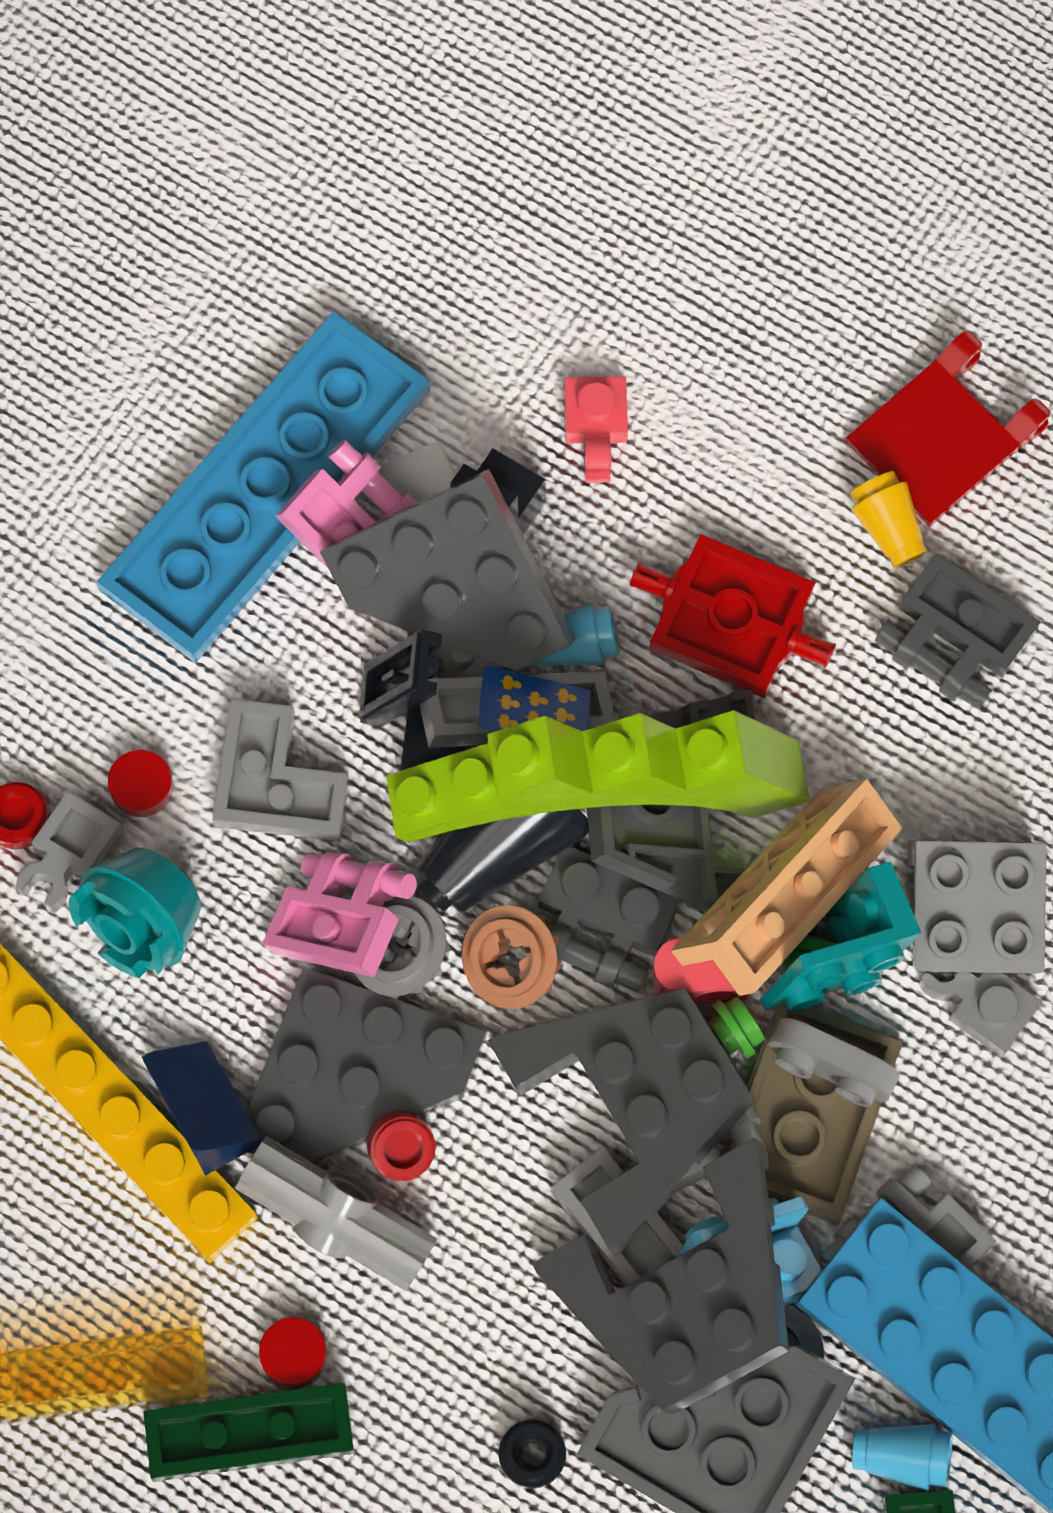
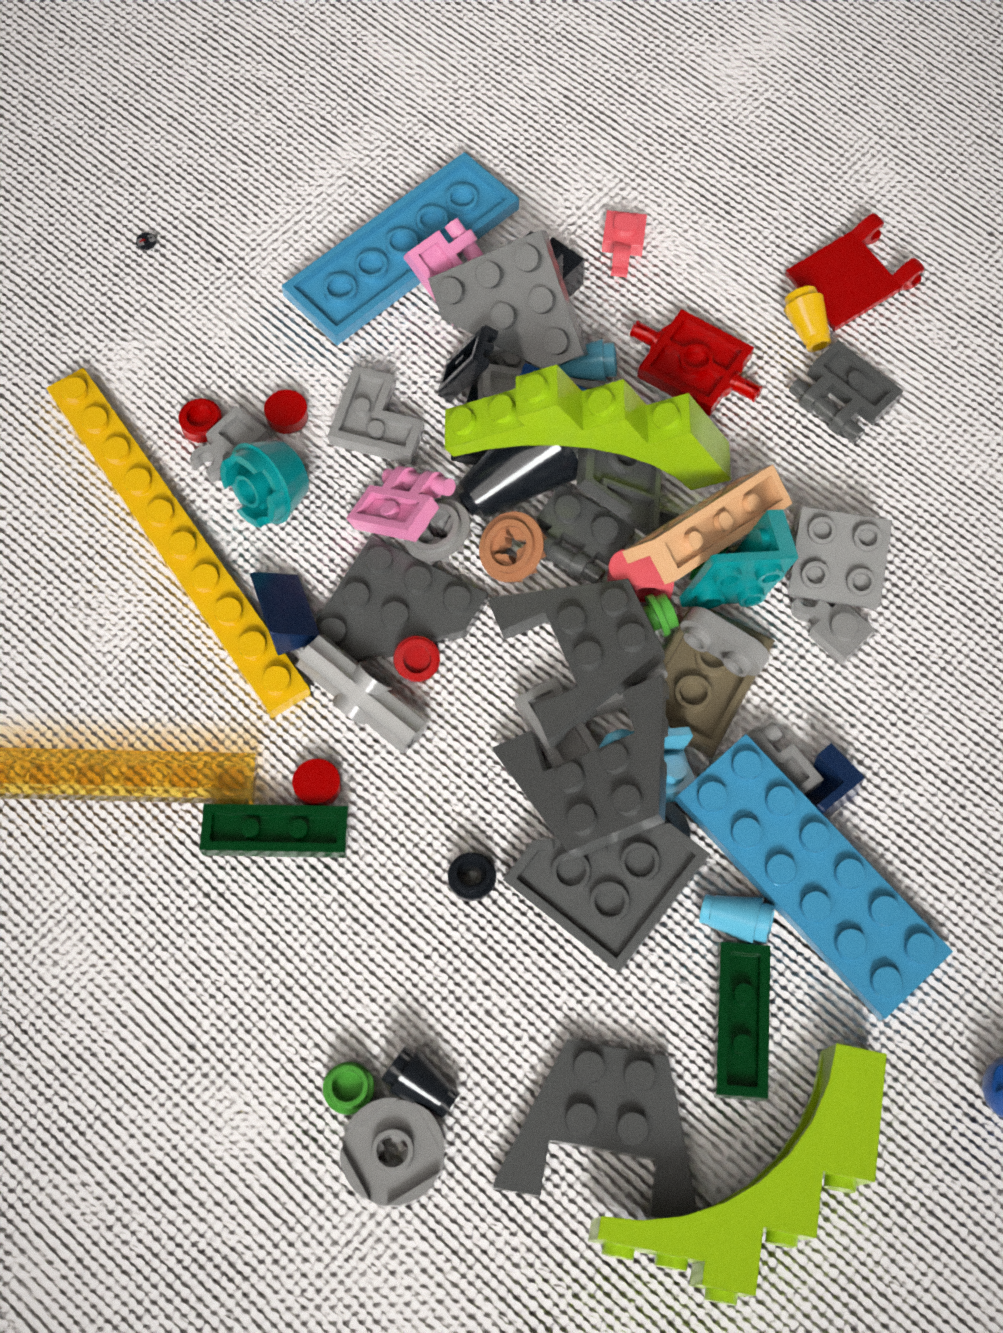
camera: 10 degrees right, 5 degrees down
(1016, 1246) = (840, 781): none -> dark blue panel

